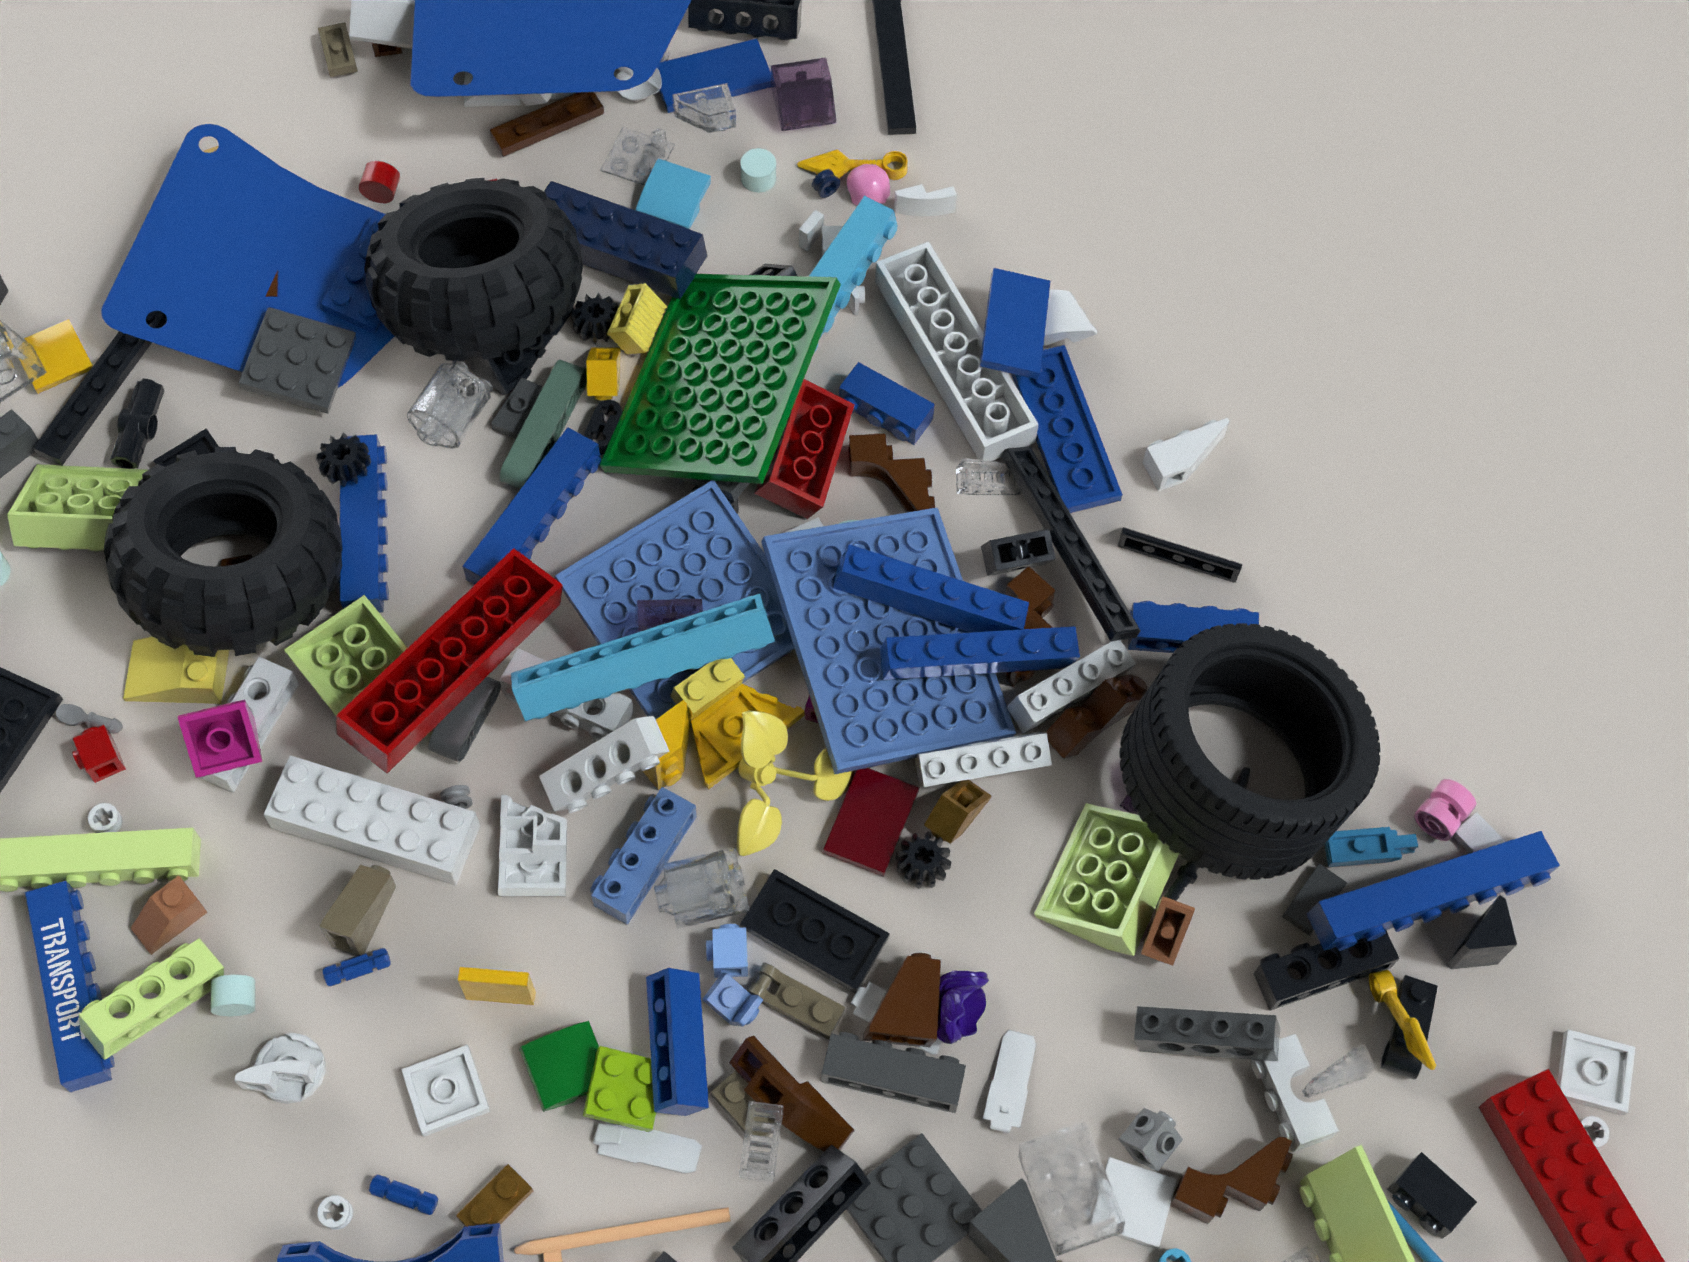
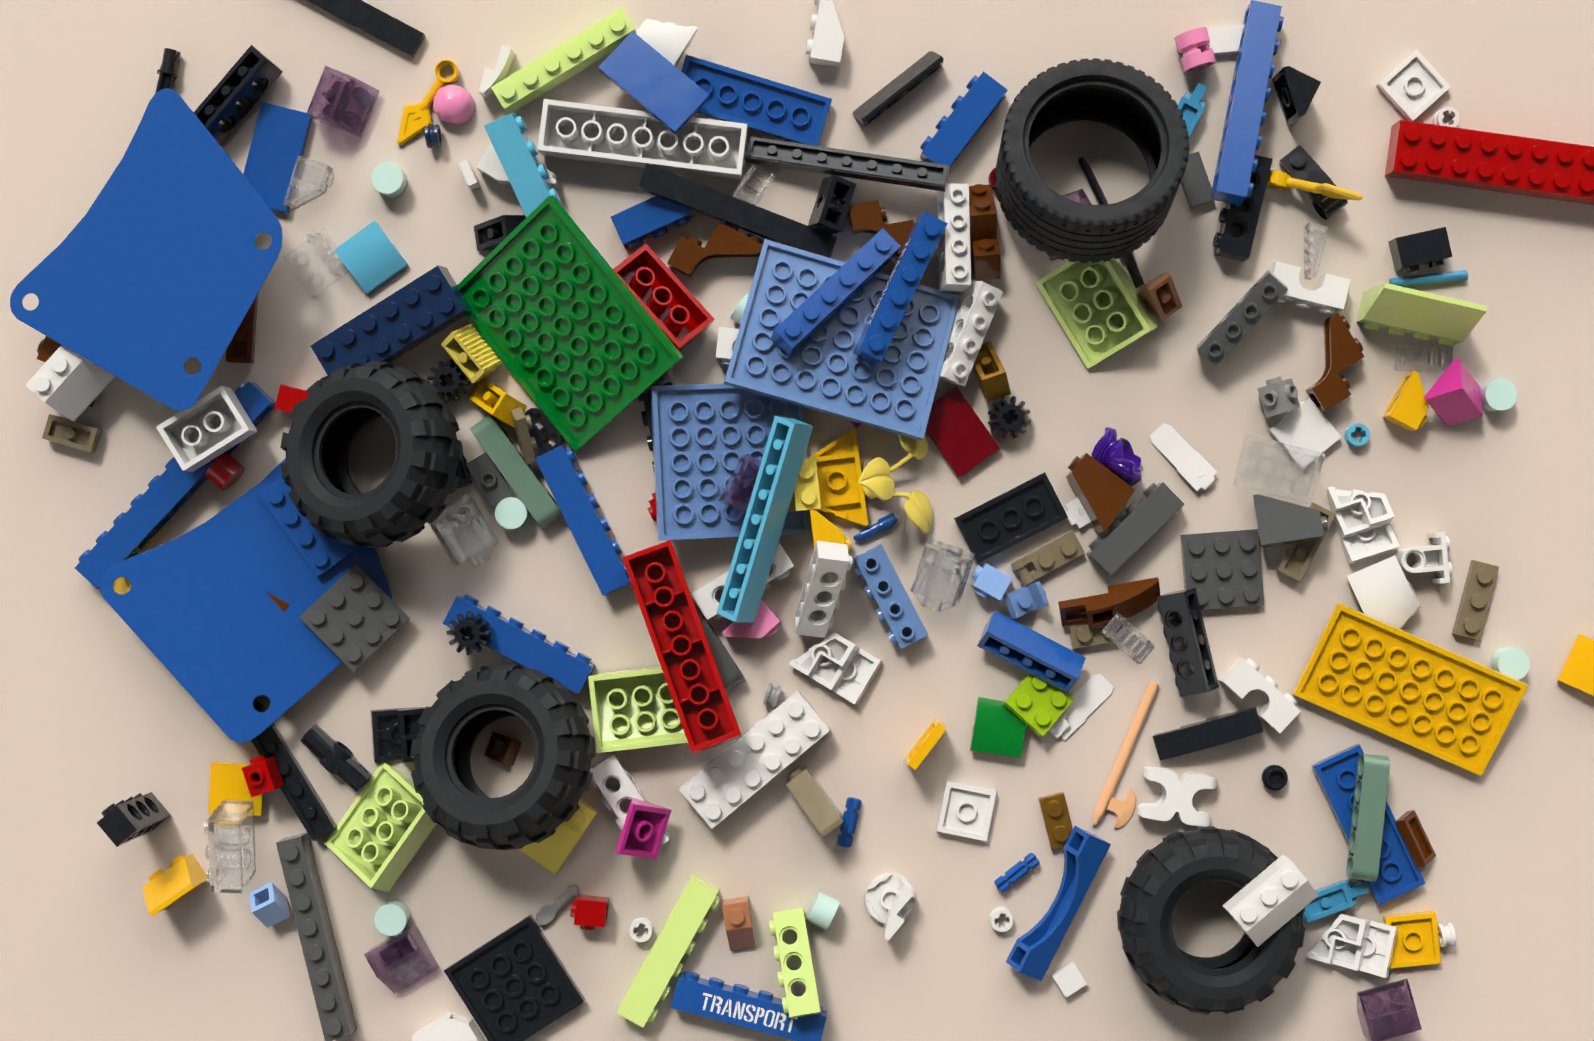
camera: 55 degrees left, 25 degrees up
(78, 362) = (262, 775): none -> red brick
(346, 151) = (160, 501): none -> blue brick
(410, 133) = (206, 429): none -> white brick
(495, 442) = (511, 513): none -> light aqua piece
(529, 739) = (764, 624): none -> bright pink slope
(591, 397) = (522, 426): none -> dark tan plate
(718, 804) = (881, 525): none -> blue piece
(945, 468) = (735, 211): none -> black tile
(973, 244) = (563, 61): none -> yellowish green brick

